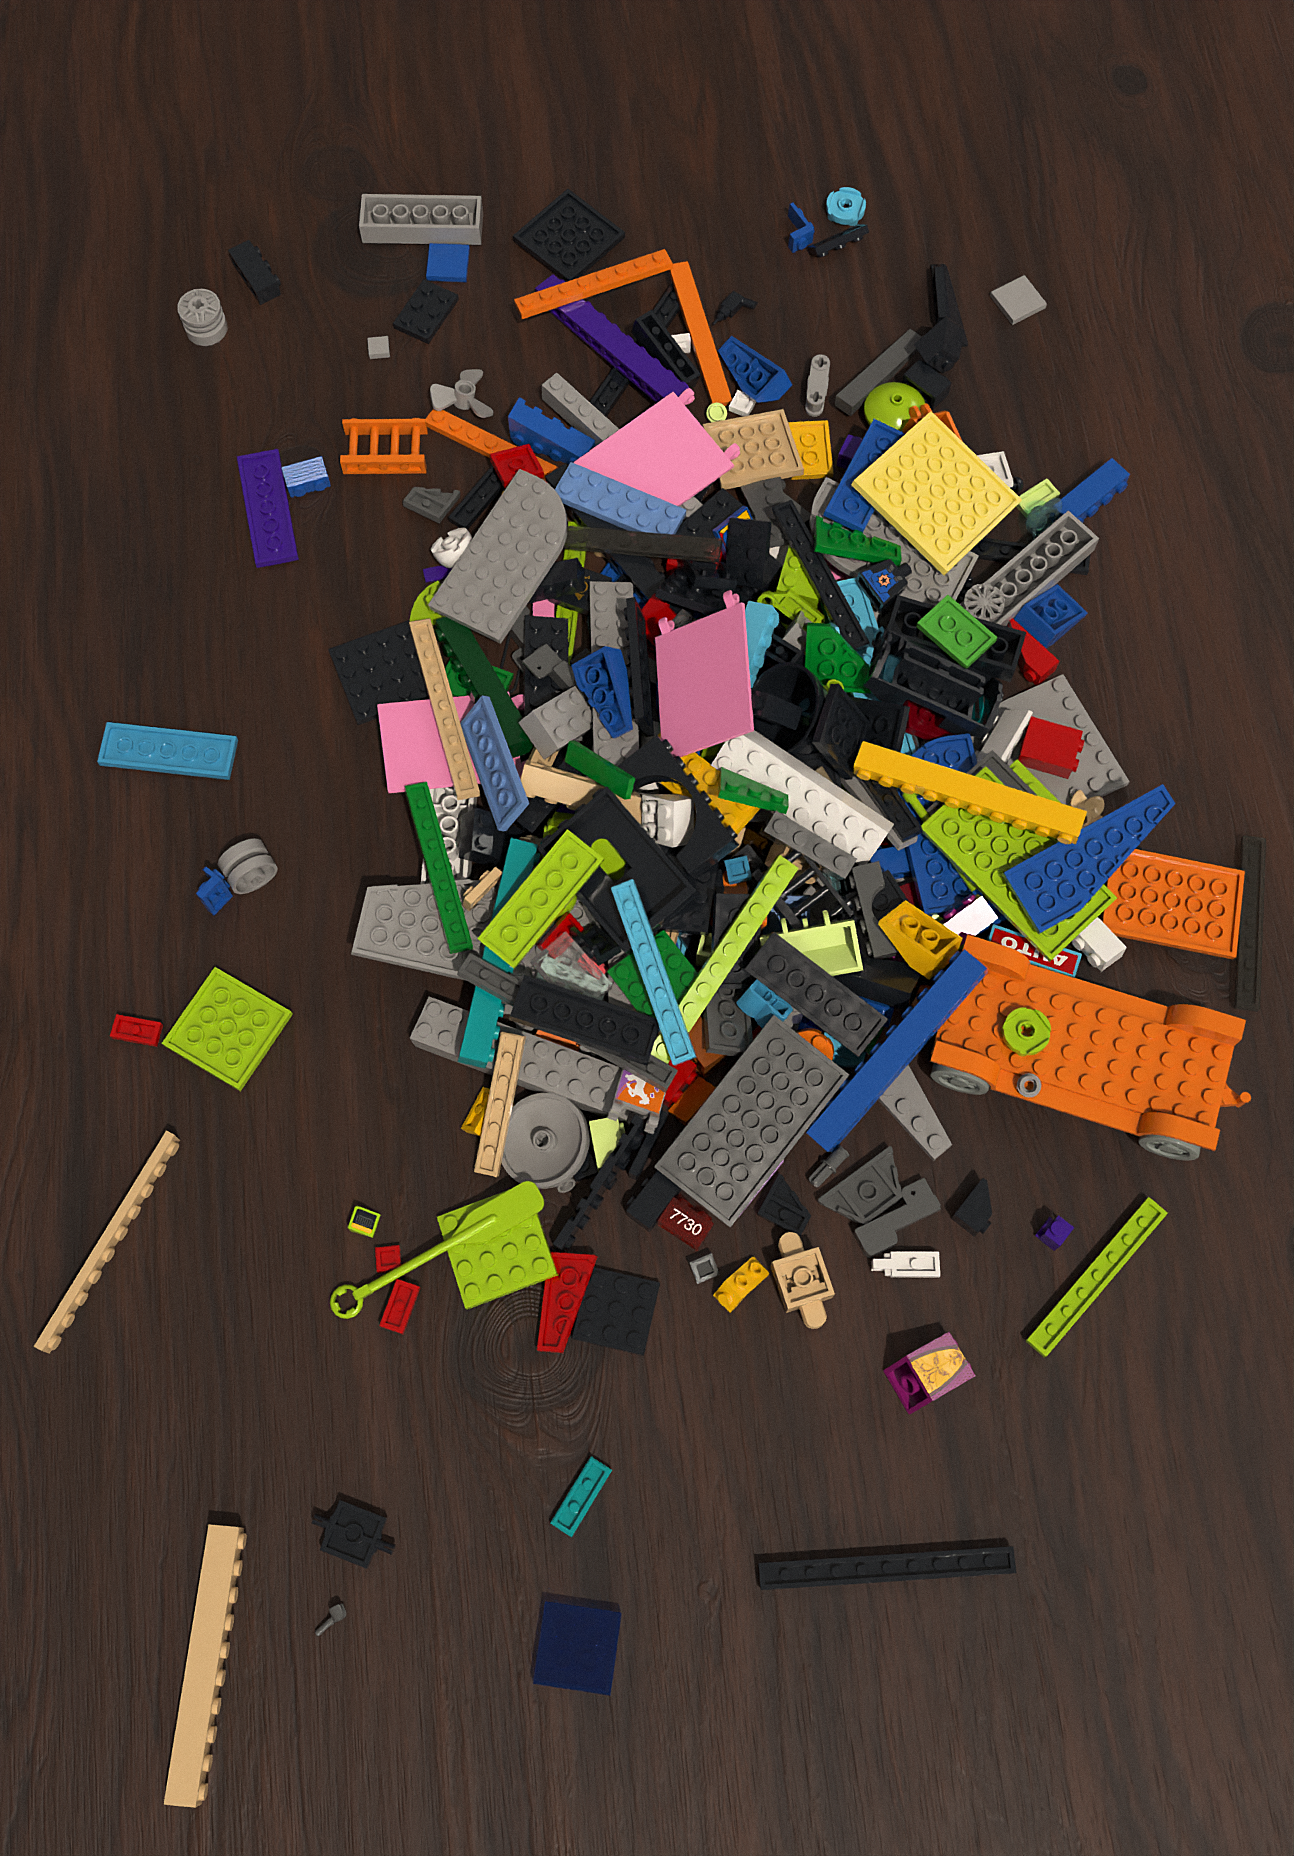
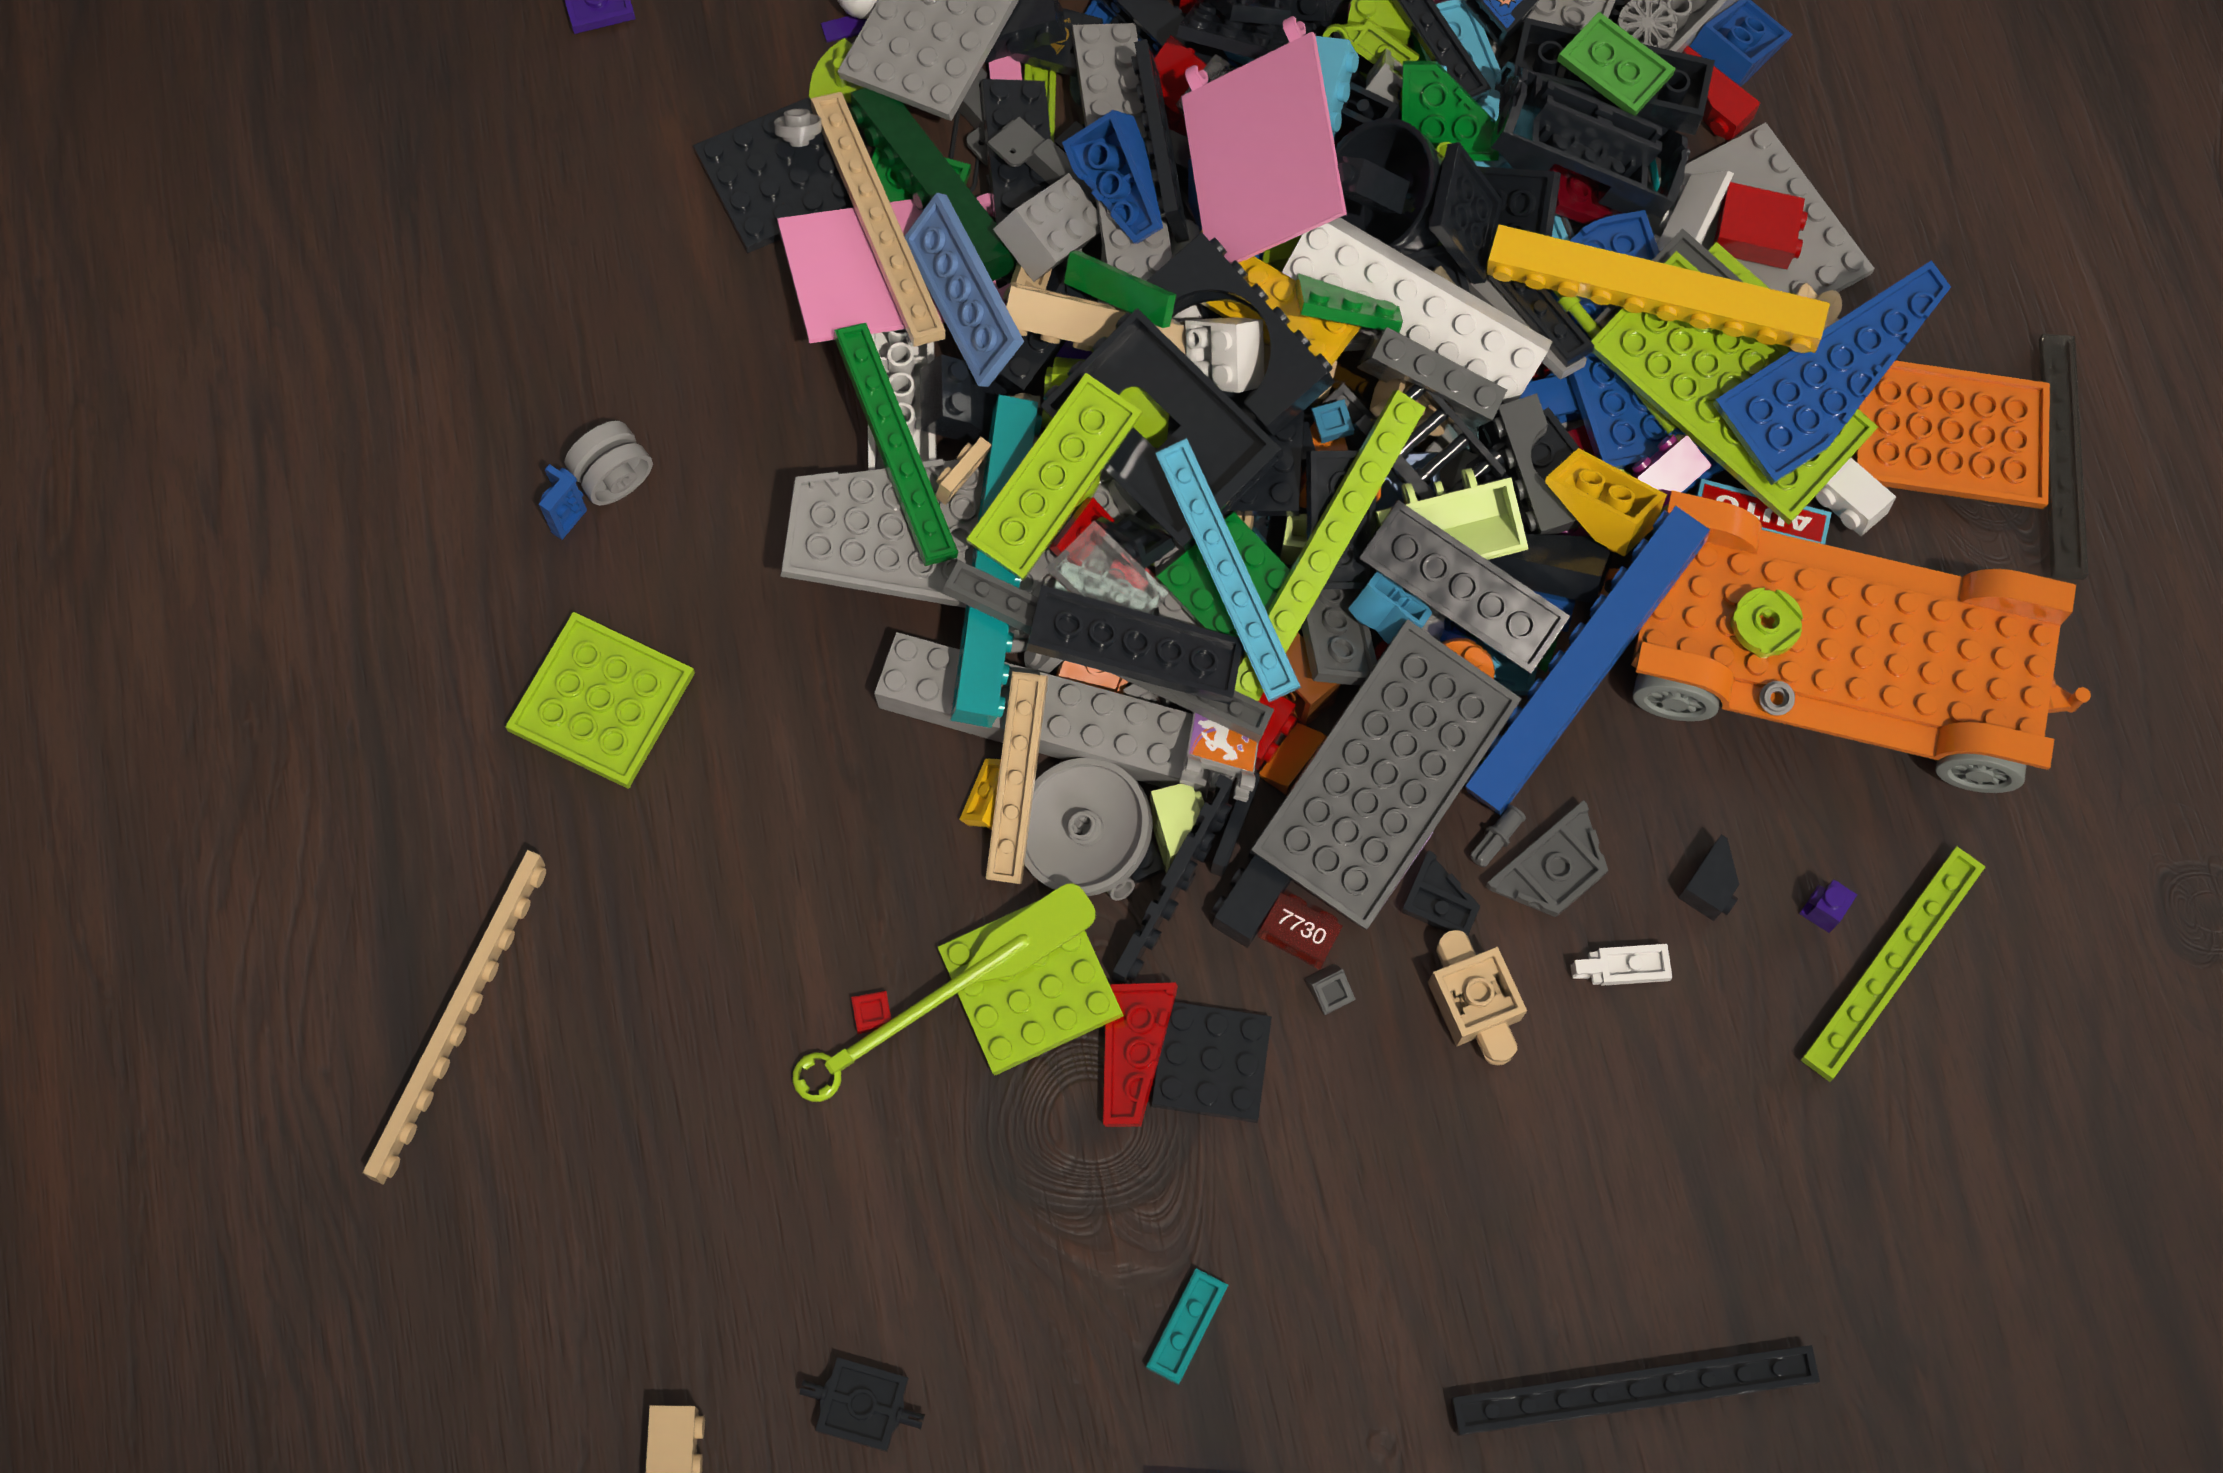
camera: 10 degrees left, 0 degrees up
(136, 1030) = (465, 711): red plate -> none
(167, 750) = (469, 305): dark azure plate -> none
(364, 1221) = (831, 962): slope -> none
(397, 641) = (798, 126): none -> light grey plate
(400, 1306) = (896, 1078): red plate -> none
(740, 1284) = (1387, 1010): yellow bracket -> none
(881, 1233) = (1583, 923): dark grey piece -> none
(914, 1113) = (1613, 755): light grey wing -> none
(929, 1373) = (1669, 1114): slope -> none

